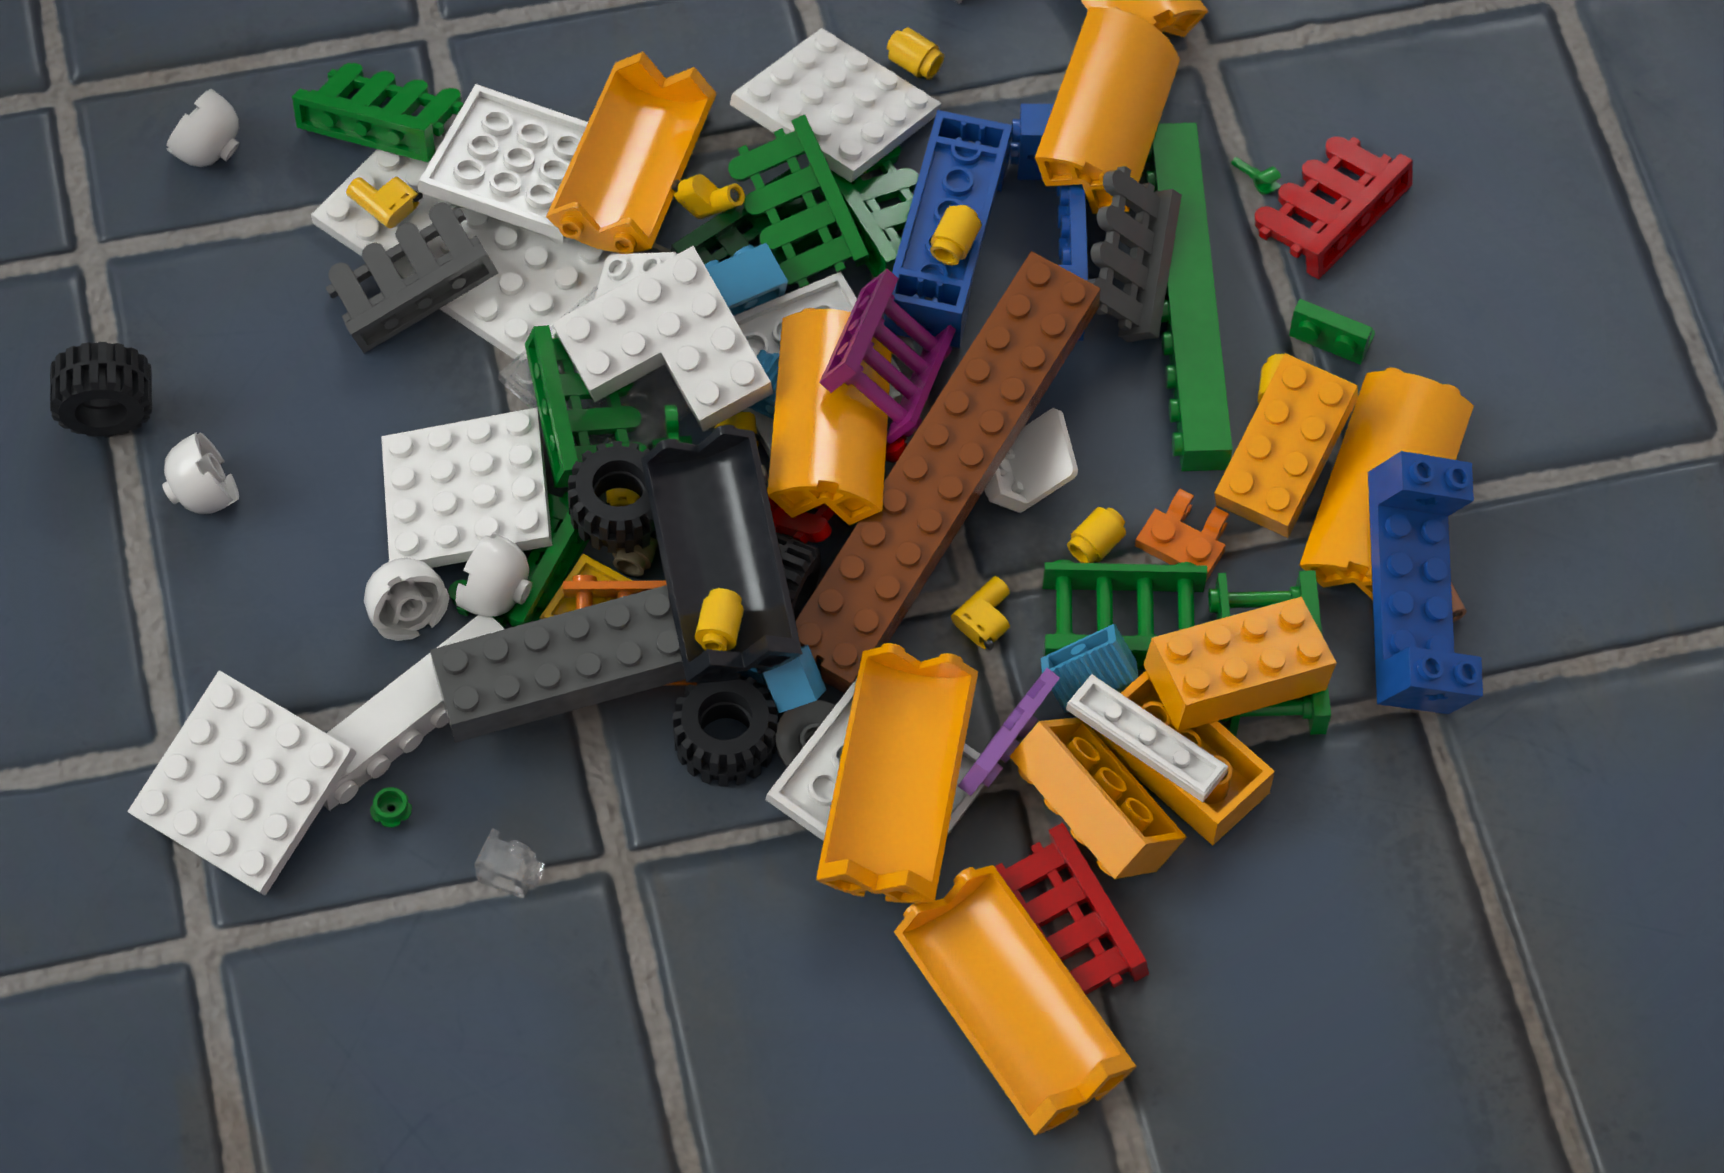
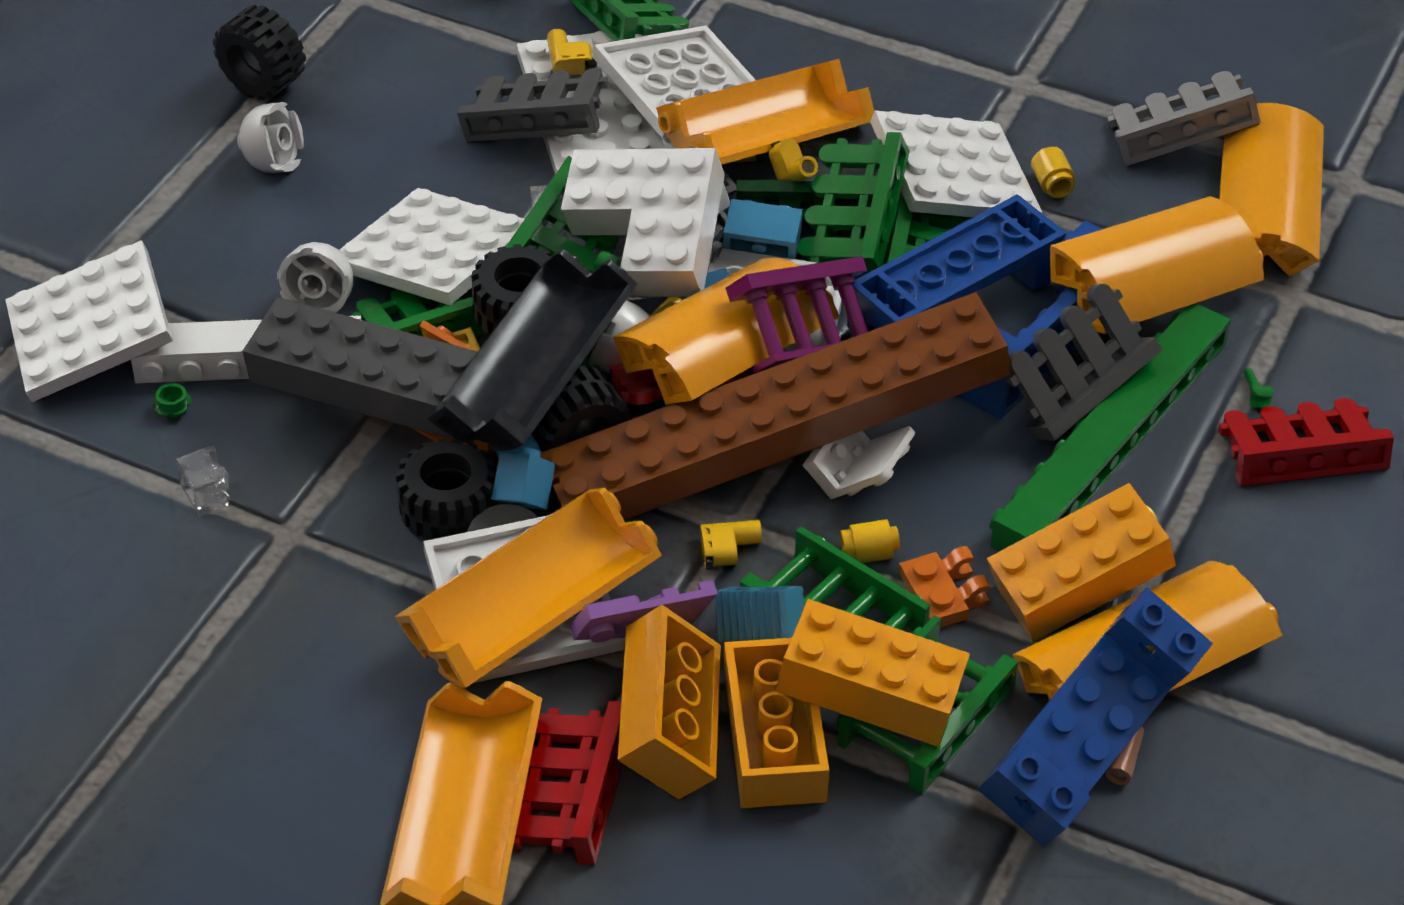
camera: 40 degrees right, 15 degrees down
(495, 578) = (381, 290): white cylinder -> none
(719, 620) = (487, 388): yellow brick -> none
(955, 234) = (941, 267): yellow brick -> none
(1147, 738) = (746, 680): white tile -> none
(1331, 331) = (1208, 517): green bracket -> none

